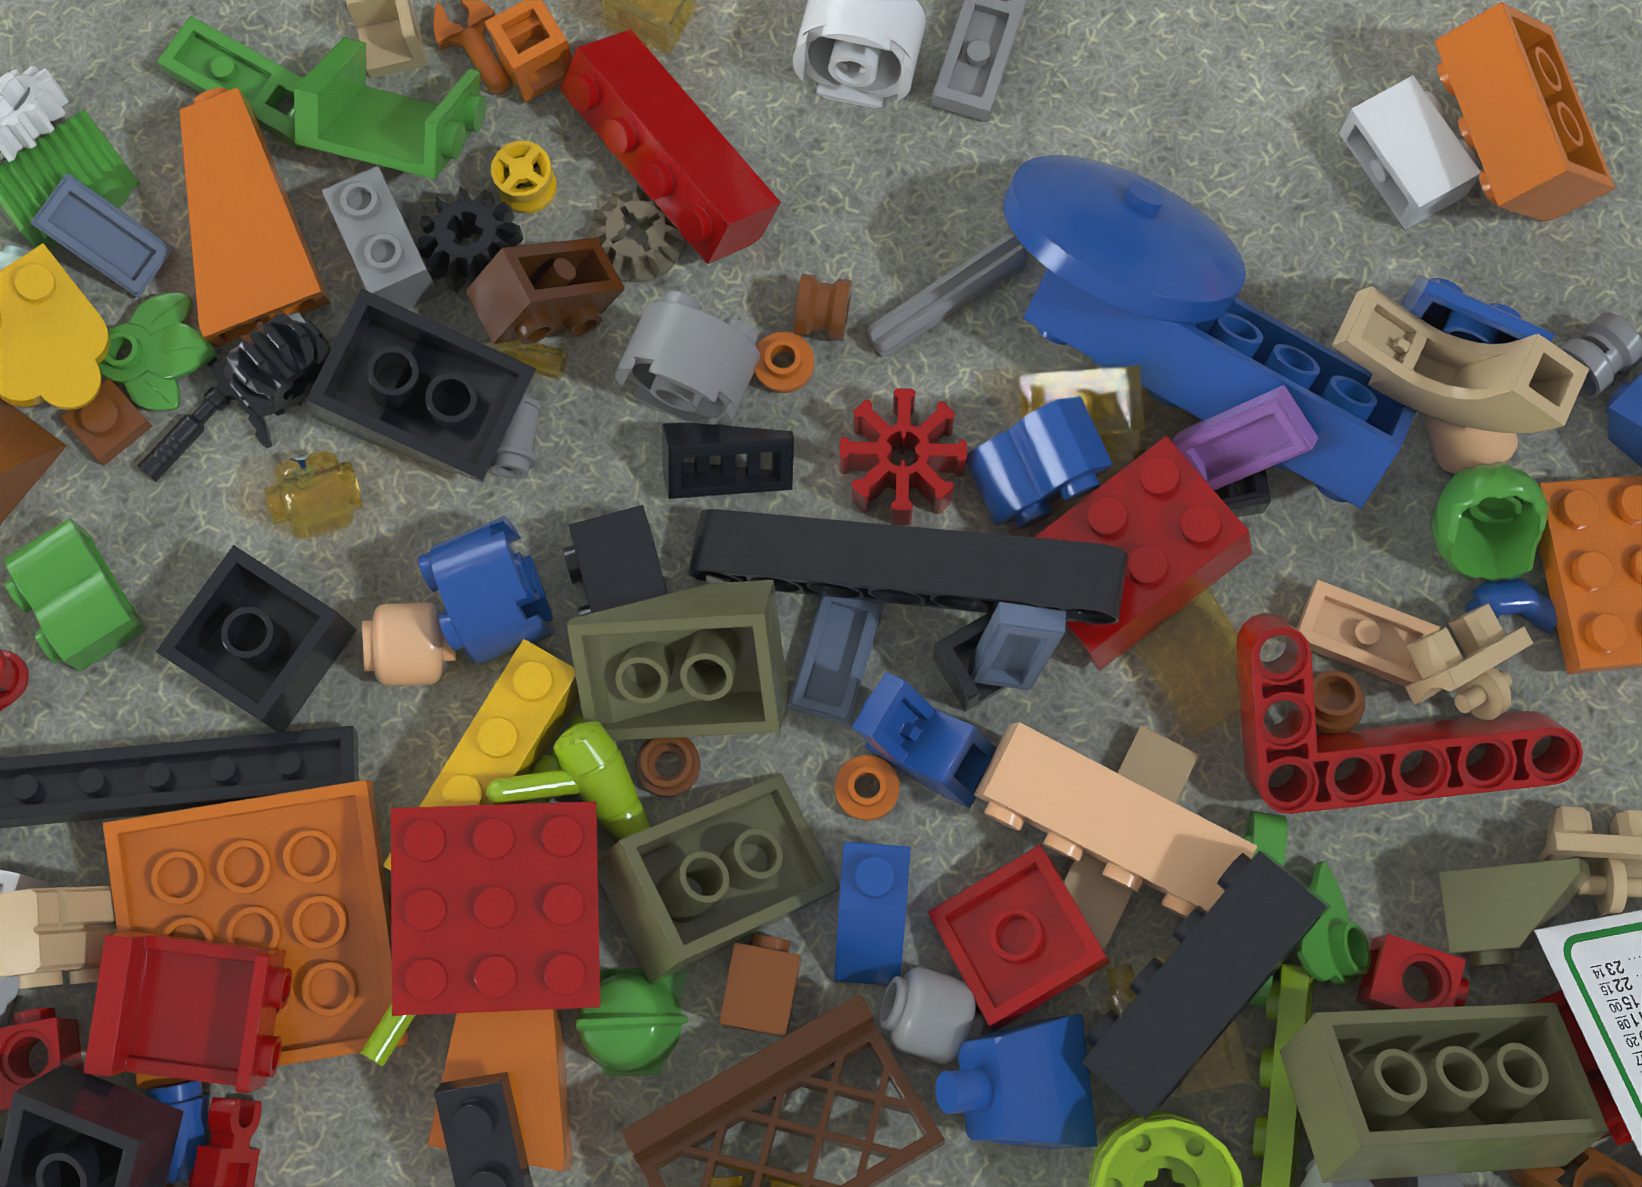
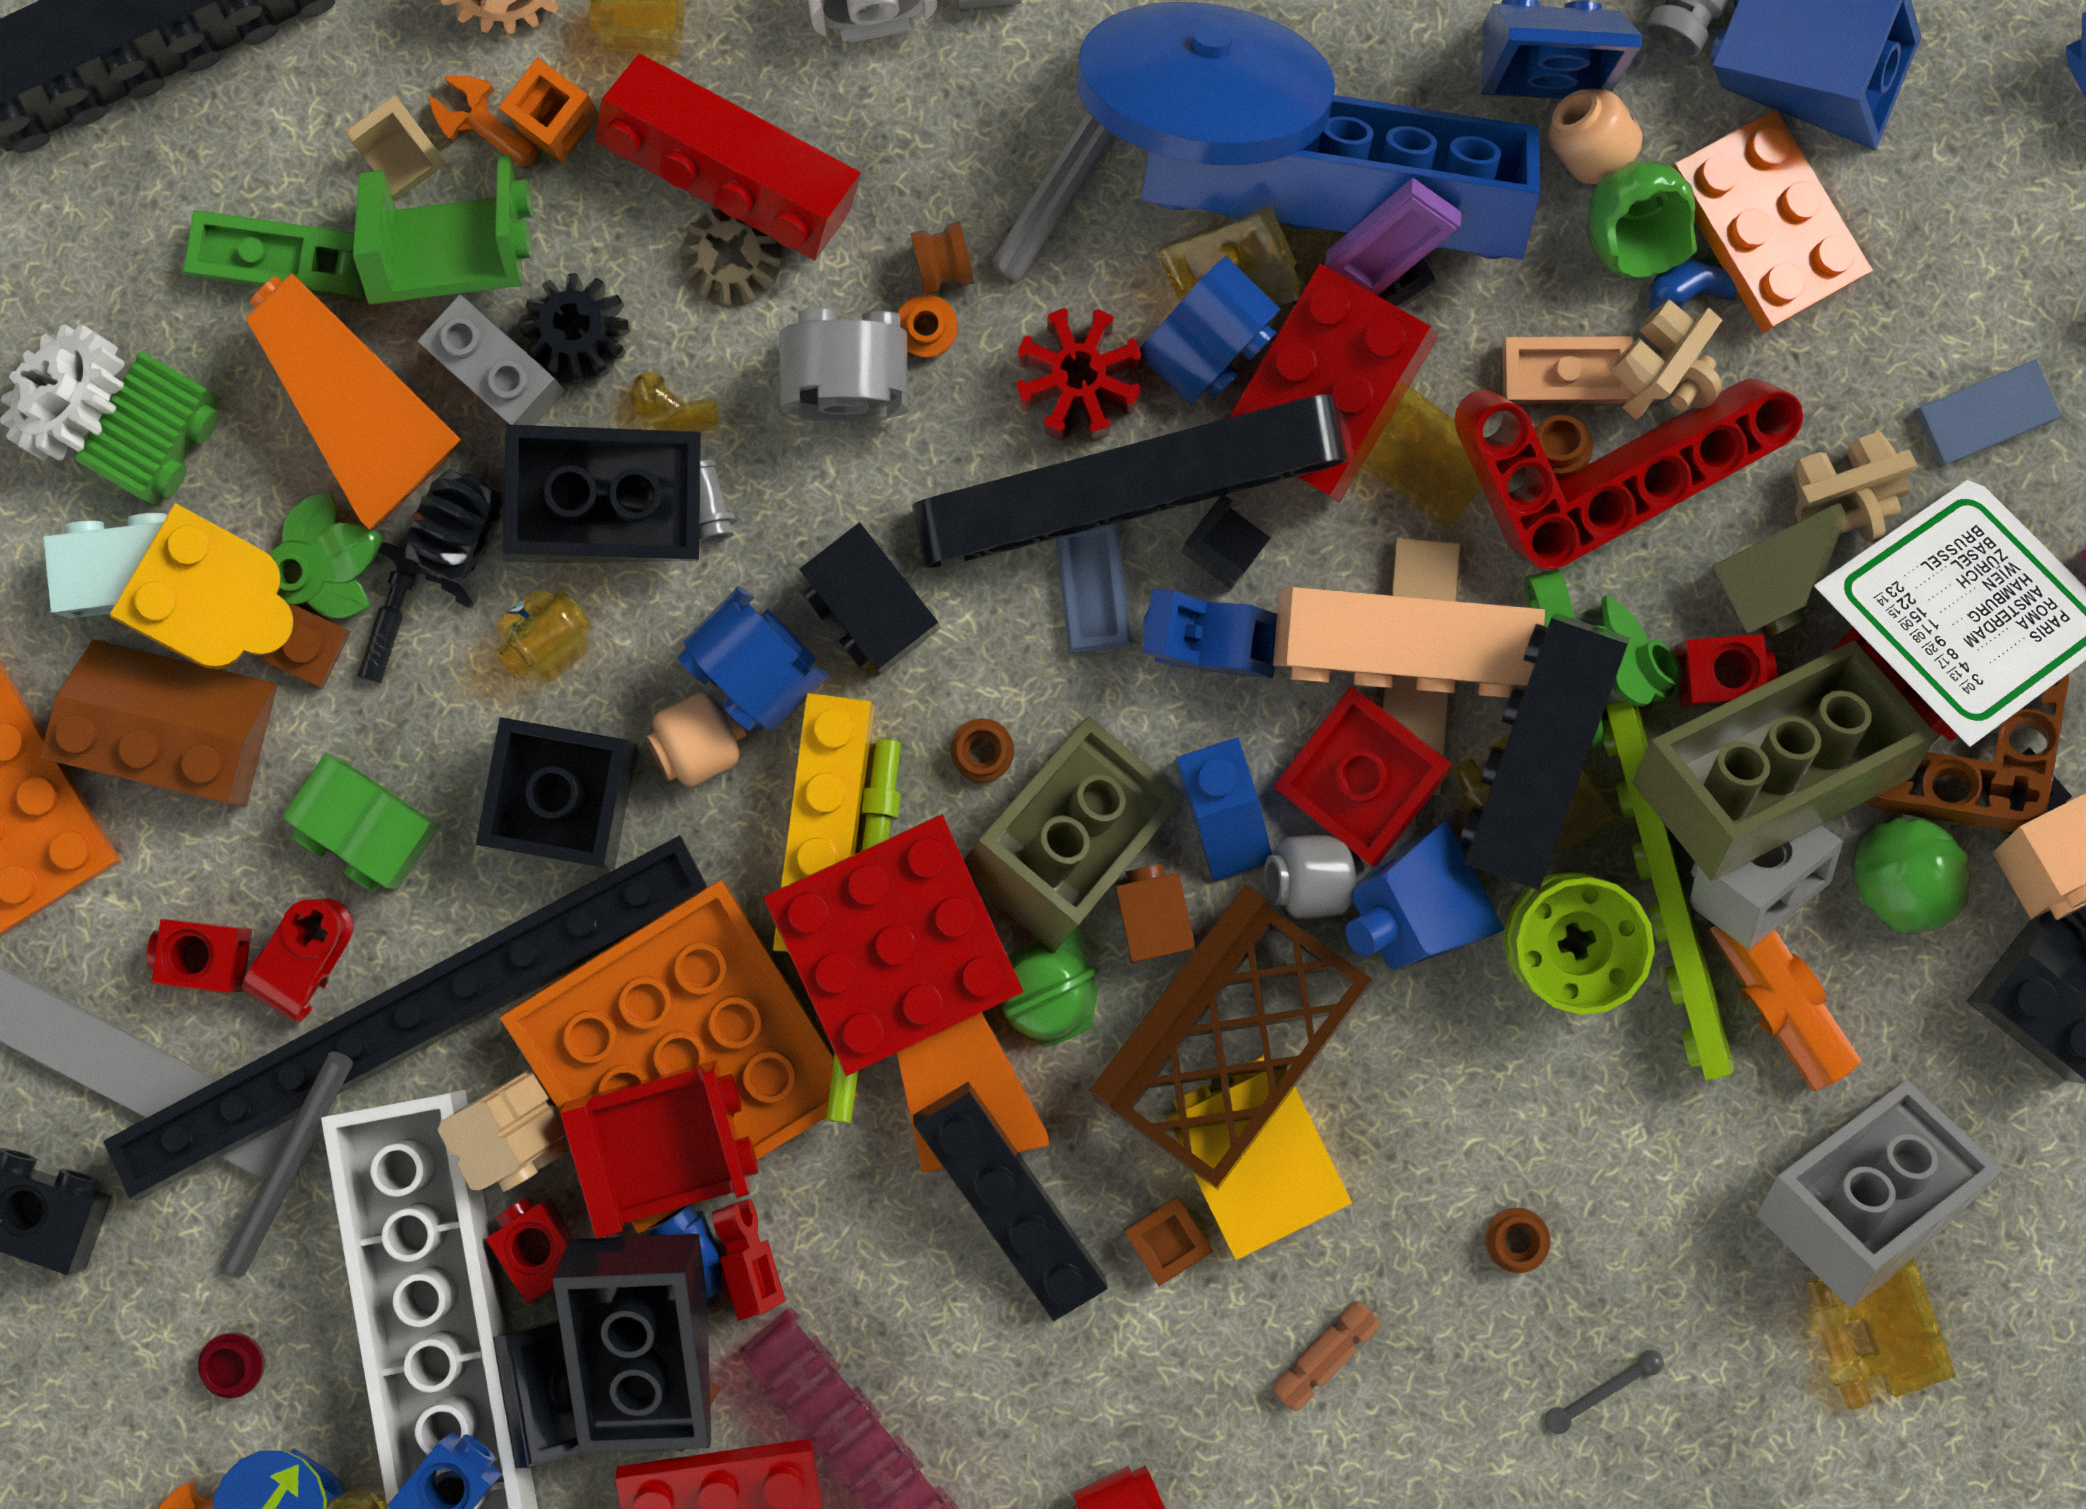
camera: 25 degrees left, 10 degrees up
(102, 235) = (218, 468): sand blue tile -> none
(516, 165) = (591, 233): yellow wheel -> none
(545, 290) = (677, 353): reddish brown brick -> none
(589, 768) = (919, 786): lime piece -> none
(683, 663) = (963, 656): olive slope -> none
(706, 440) = (877, 445): black slope -> none
(867, 808) = (1157, 711): orange plate -> none
(1016, 645) = (1260, 516): sand blue tile -> none
(1460, 381) = (1568, 102): tan arch -> none

